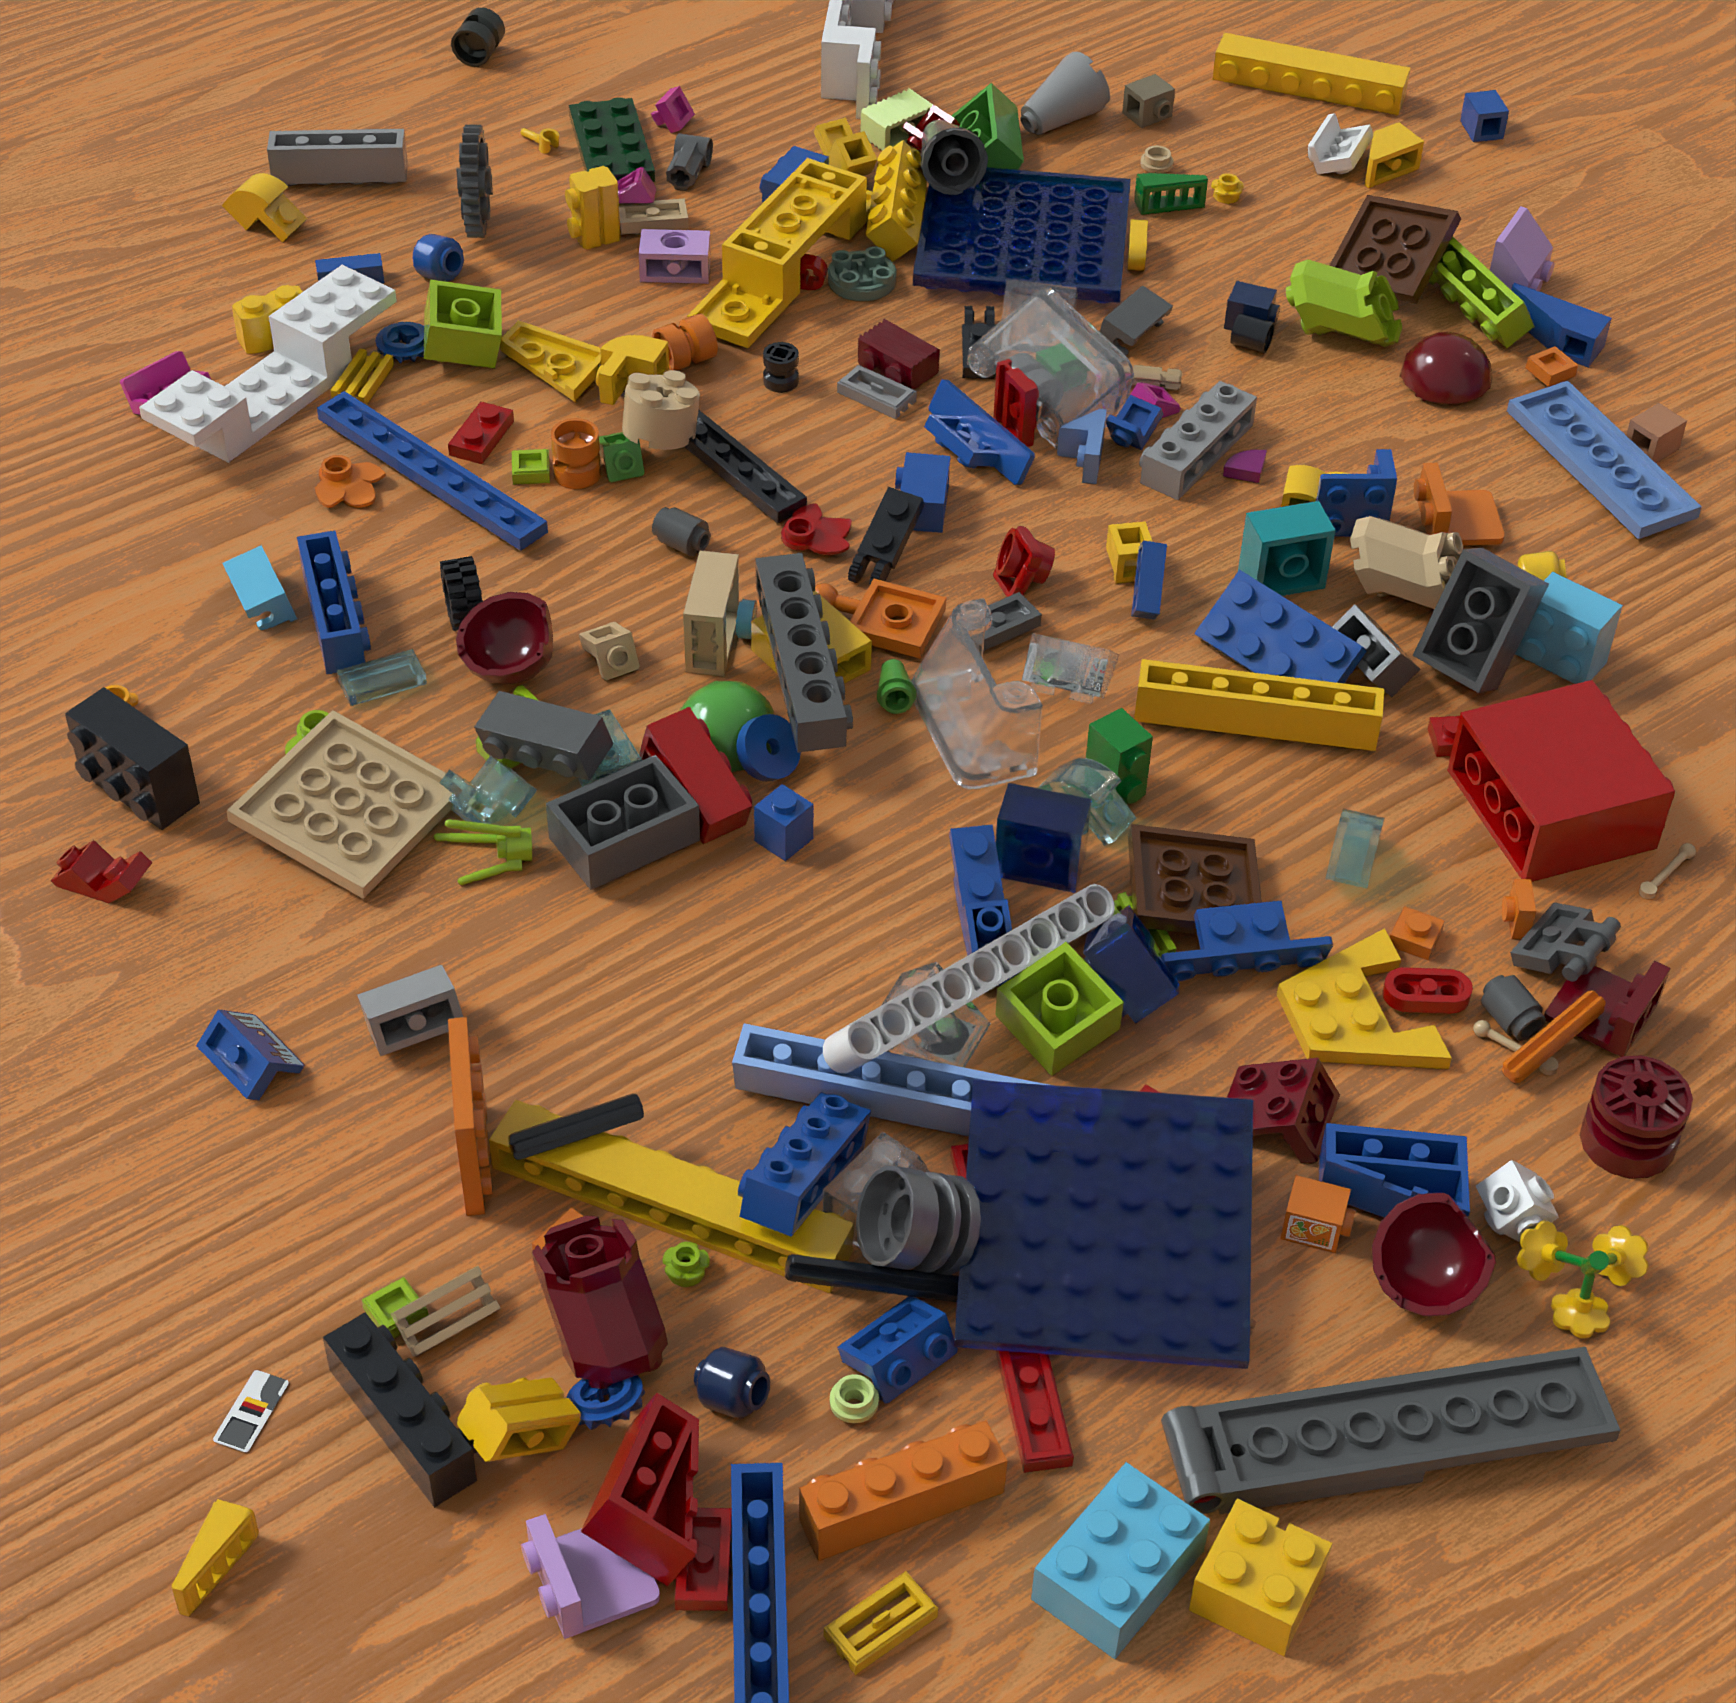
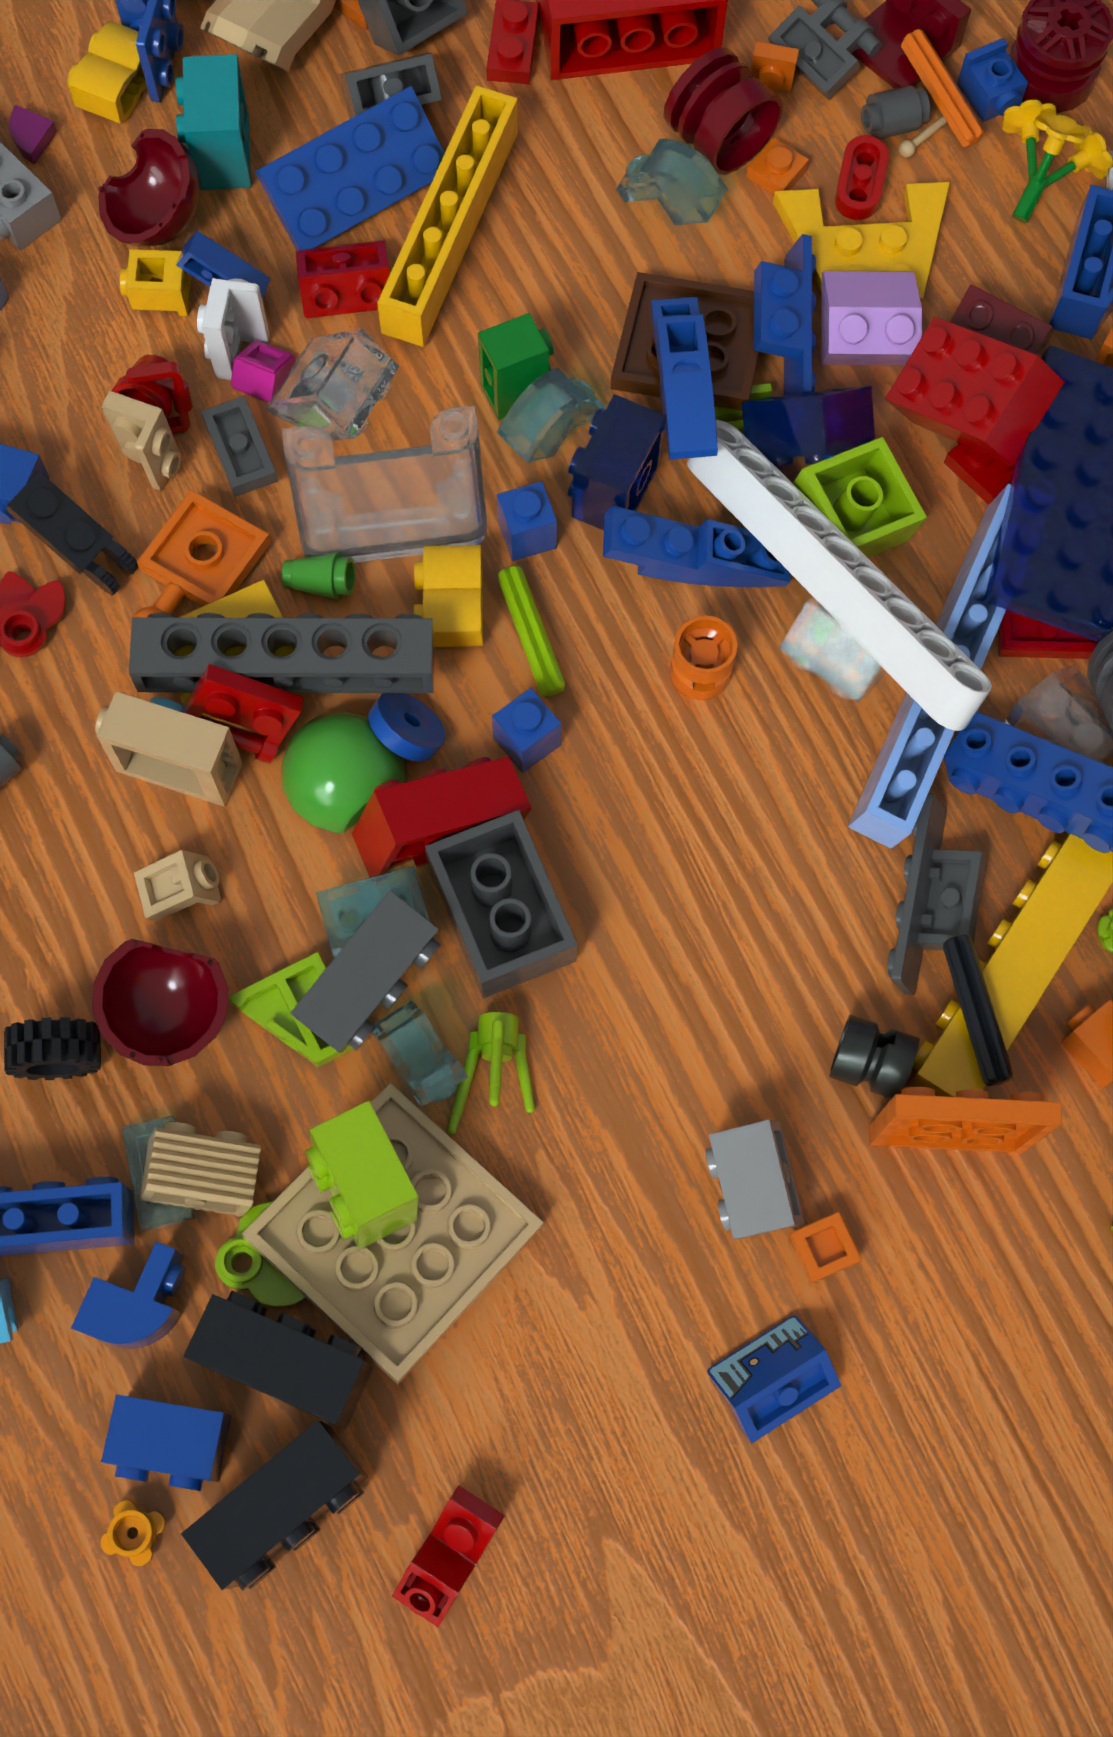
camera: 80 degrees left, 25 degrees up
(183, 702) = (166, 1440): none -> blue brick
(236, 740) = (280, 1358): none -> black brick
(278, 677) = (138, 1316): none -> blue brick
(361, 1072) = (825, 1247): none -> orange plate
(375, 748) = (363, 1176): none -> lime brick
(380, 684) = (200, 1169): none -> tan brick
(531, 1074) = (874, 1057): none -> pearl dark grey wheel
(698, 1110) = (939, 896): none -> dark grey bracket
(748, 638) = (247, 704): none -> red plate
(878, 923) = (703, 657): none -> orange wheel
(882, 822) = (531, 631): none -> lime axle
(897, 764) = (452, 593): none -> yellow brick
(972, 557) = (143, 437): none -> tan bracket
(977, 795) = (527, 521): none -> blue brick
(1079, 626) = (260, 370): none -> dark pink slope
(1094, 586) = (229, 317): none -> white bracket
(1129, 849) = (684, 378): none -> blue slope
(1175, 644) = (342, 278): none -> red bracket
(1190, 1054) = (974, 390): none -> red brick
(1202, 532) = (155, 197): none -> dark red cylinder
(1263, 1000) = (869, 318): none -> lavender slope
(1440, 863) = (723, 110): none -> dark red wheel
(1512, 1101) = (1035, 117): none -> yellow plant
(1575, 1077) = (991, 80): none -> blue brick

